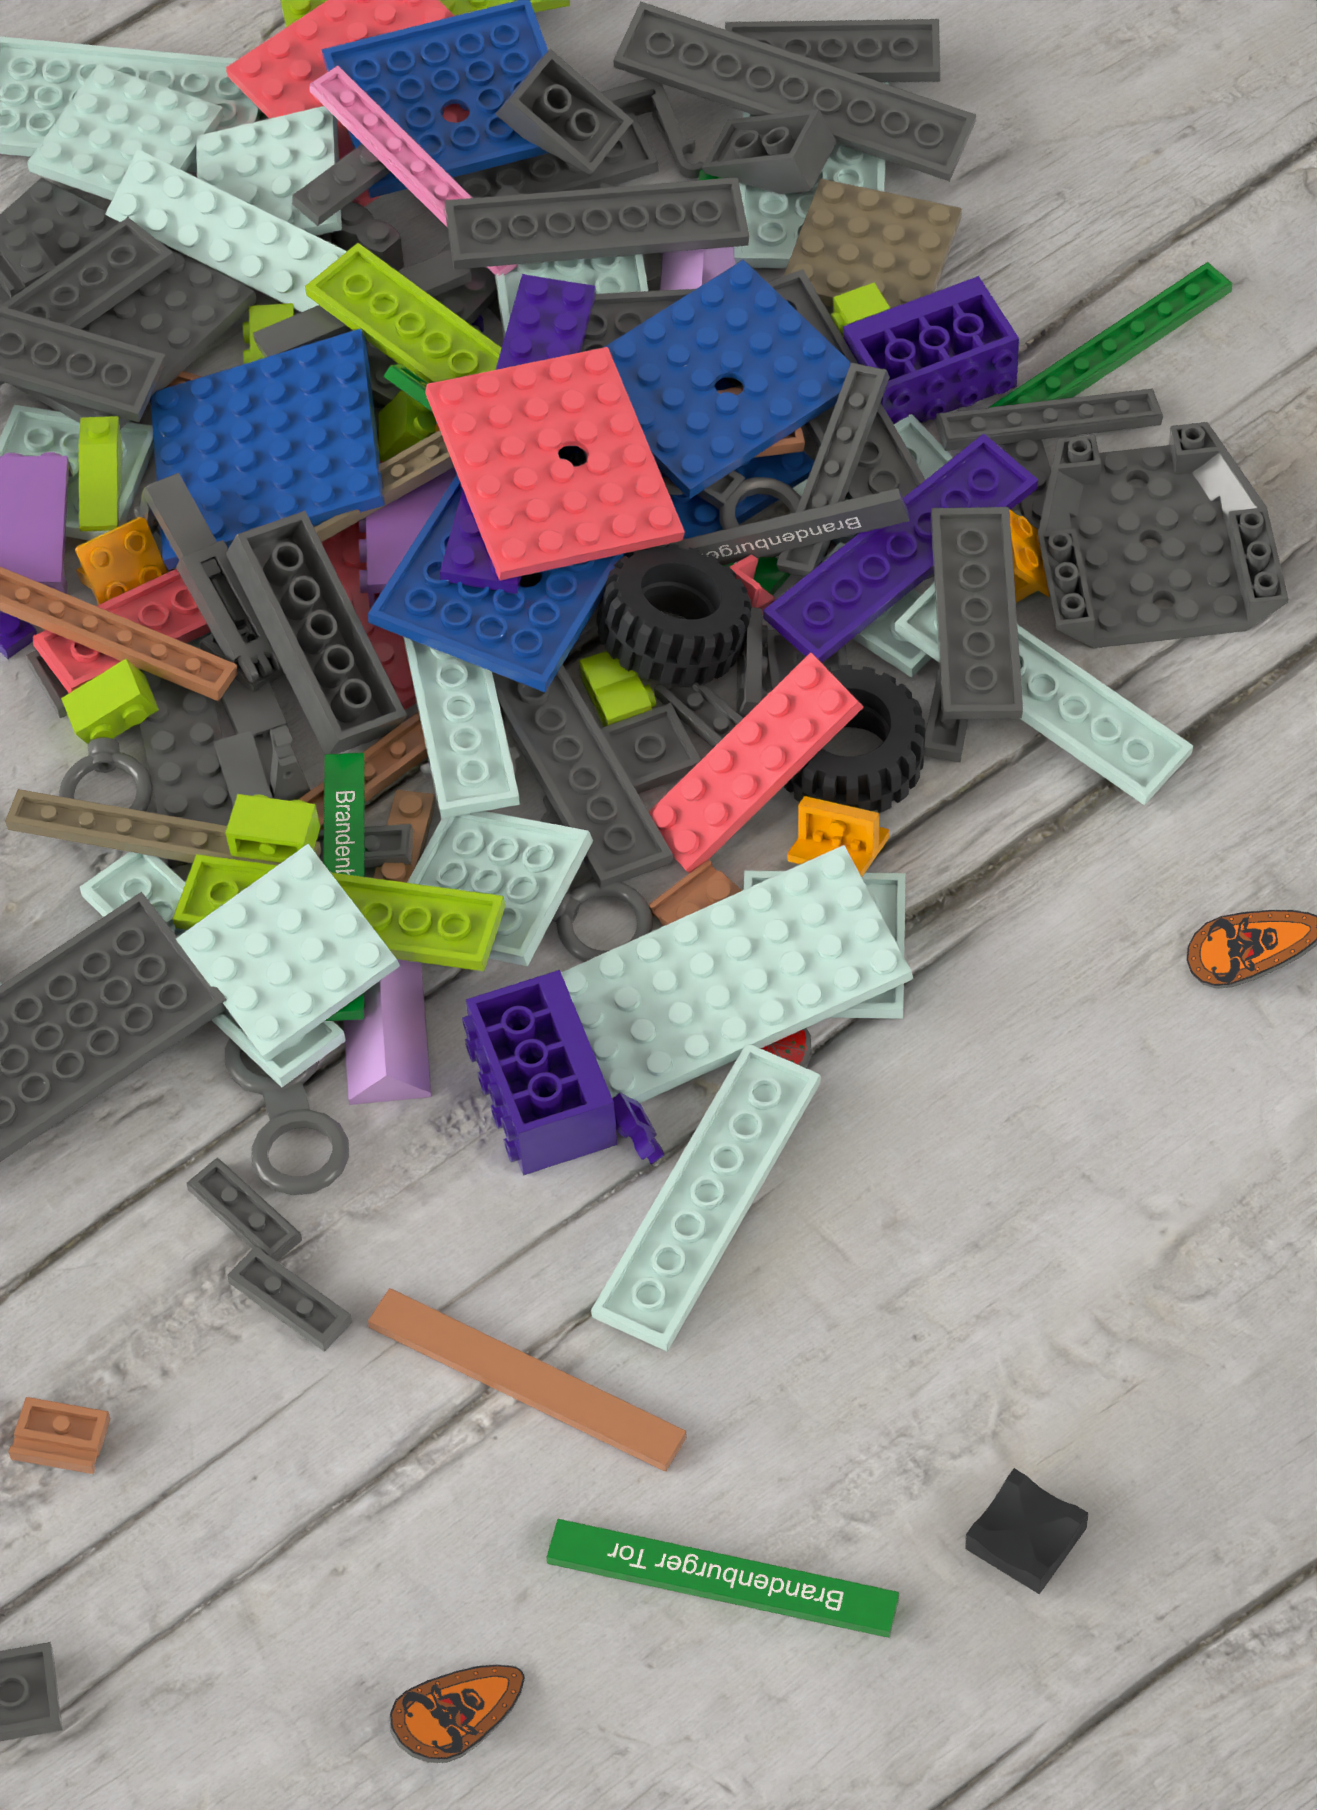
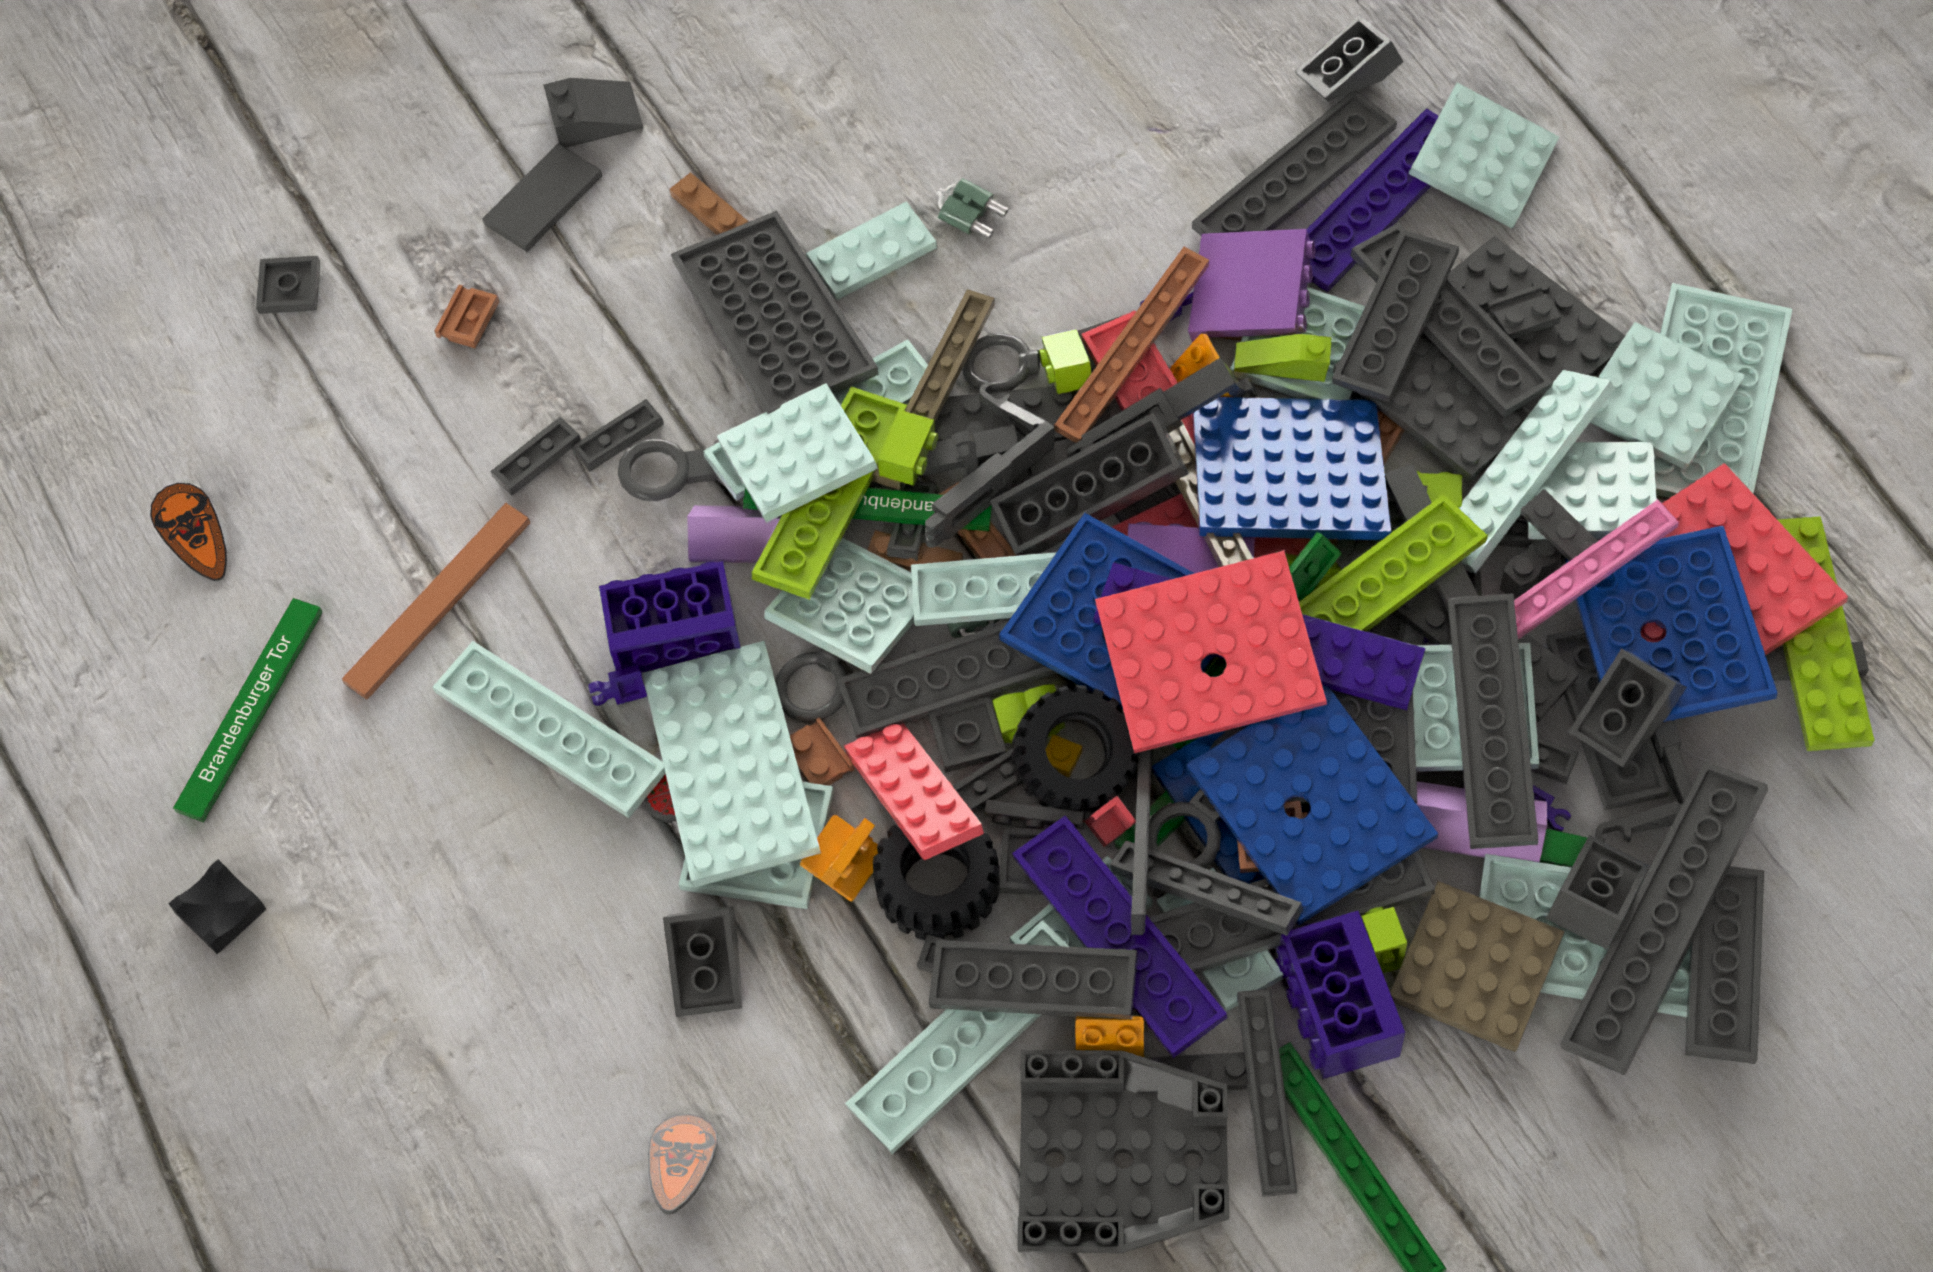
camera: 100 degrees right, 5 degrees up
(312, 745) = (995, 475): none -> dark grey hinge
(992, 968) = (703, 961): none -> dark grey slope

